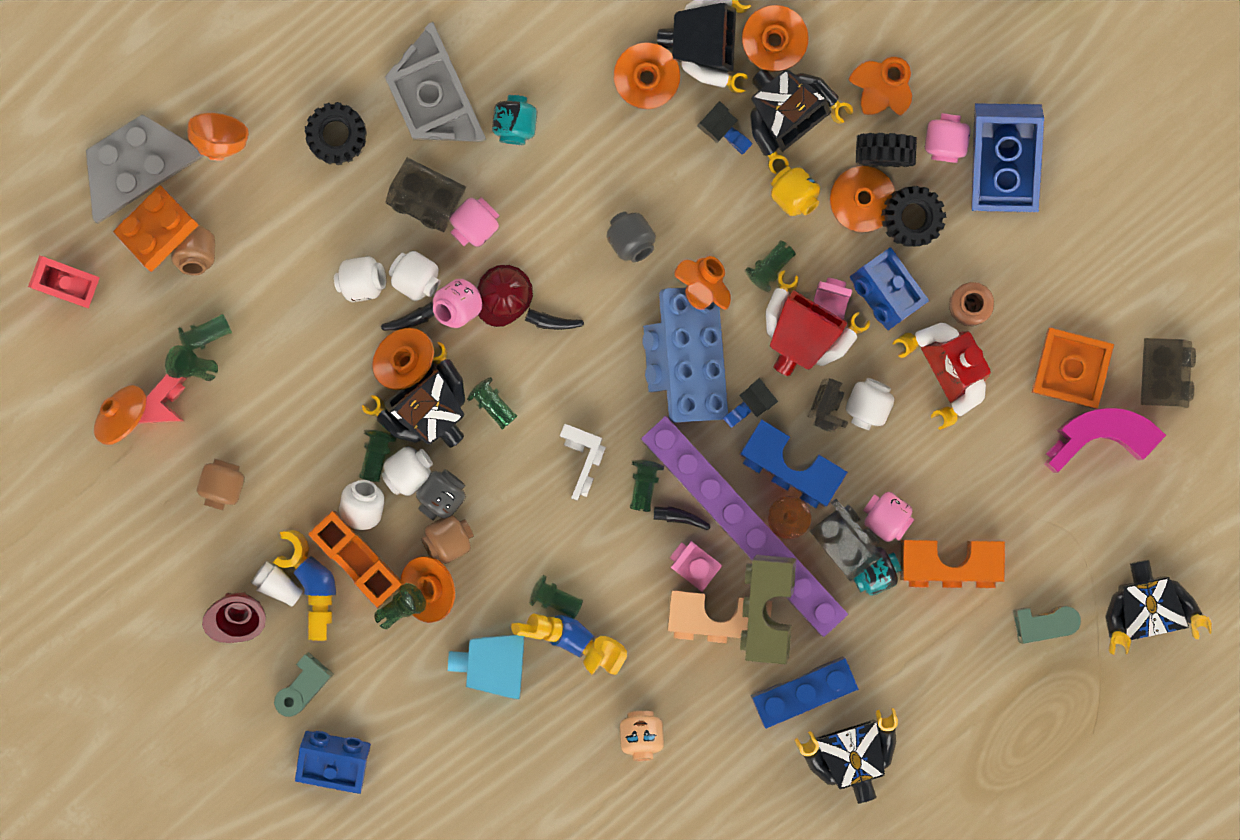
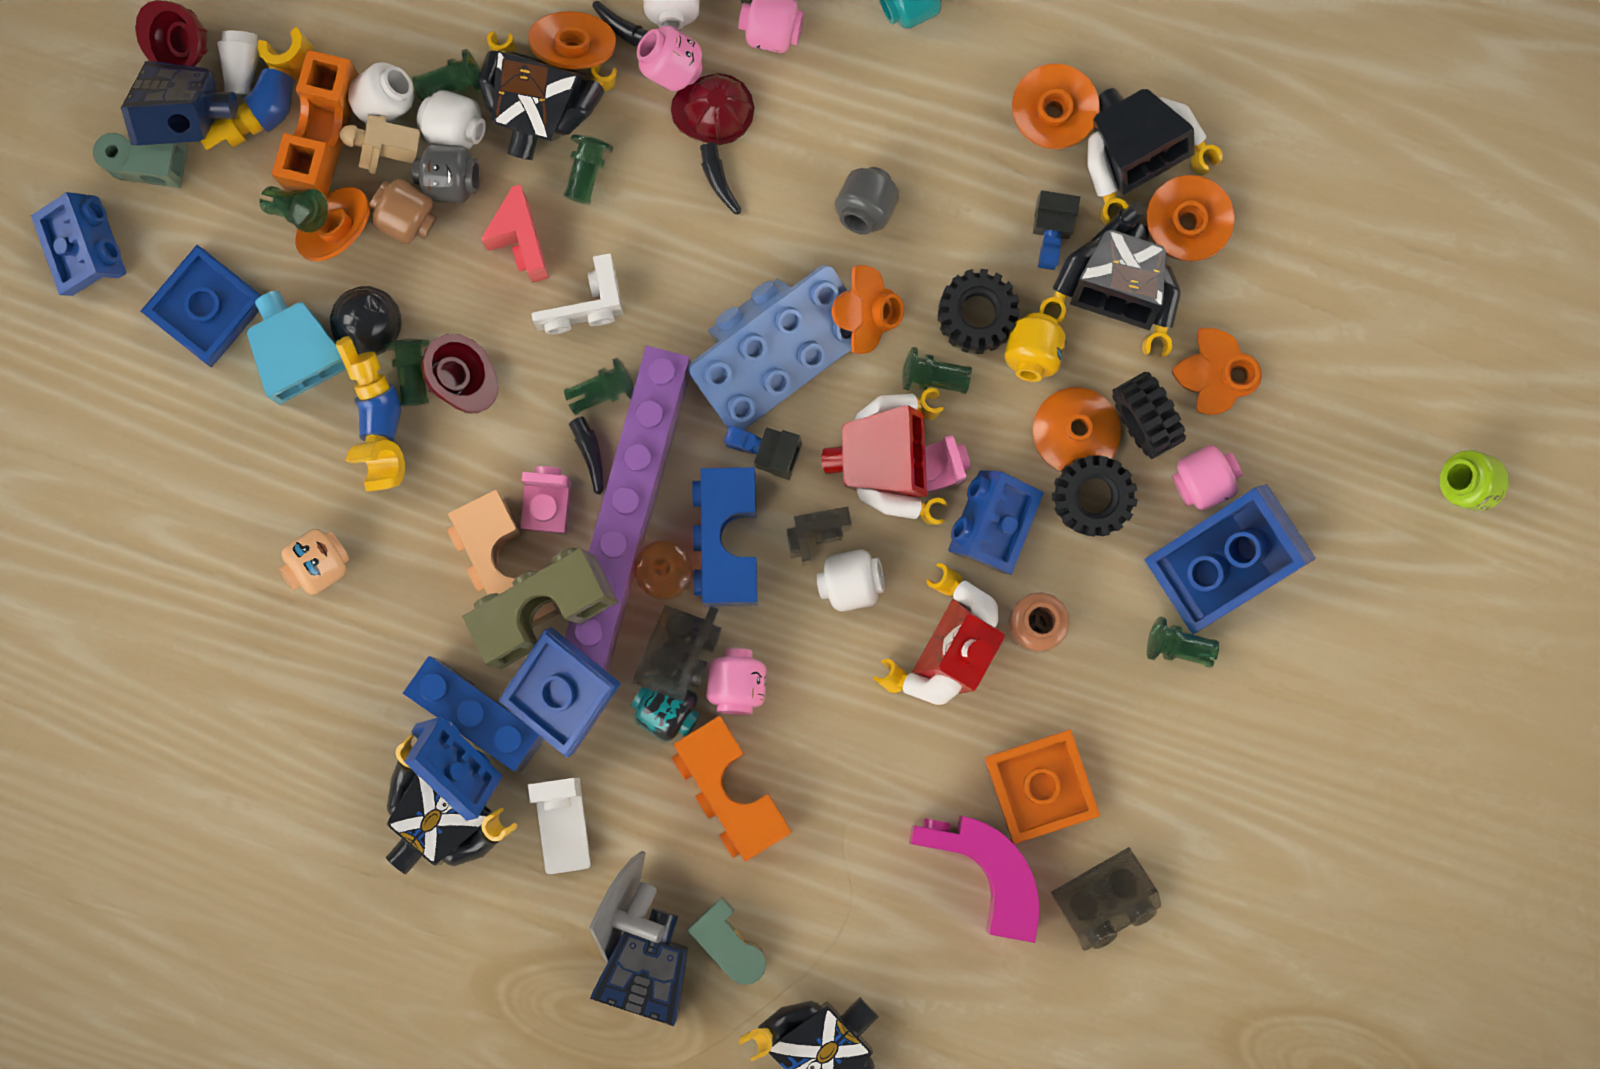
camera: 60 degrees right, 5 degrees down
(285, 641) = (174, 104): none -> dark blue torso
(391, 524) = (381, 140): none -> tan piece
(424, 705) = (203, 306): none -> blue tile
(500, 606) = (367, 318): none -> black piece
(501, 470) = (515, 225): none -> coral slope
(580, 567) = (460, 373): none -> piece
(751, 84) = (1124, 220): none -> black helmet
(762, 197) = (978, 285): none -> black tyre
(828, 630) = (559, 692): none -> blue tile
(833, 724) = (452, 767): none -> blue bracket
(907, 681) = (561, 825): none -> white bracket
(996, 673) = (625, 909): none -> light grey shield
(1030, 685) = (645, 974): none -> torso
(1037, 227) = (1179, 644): none -> clear green pin

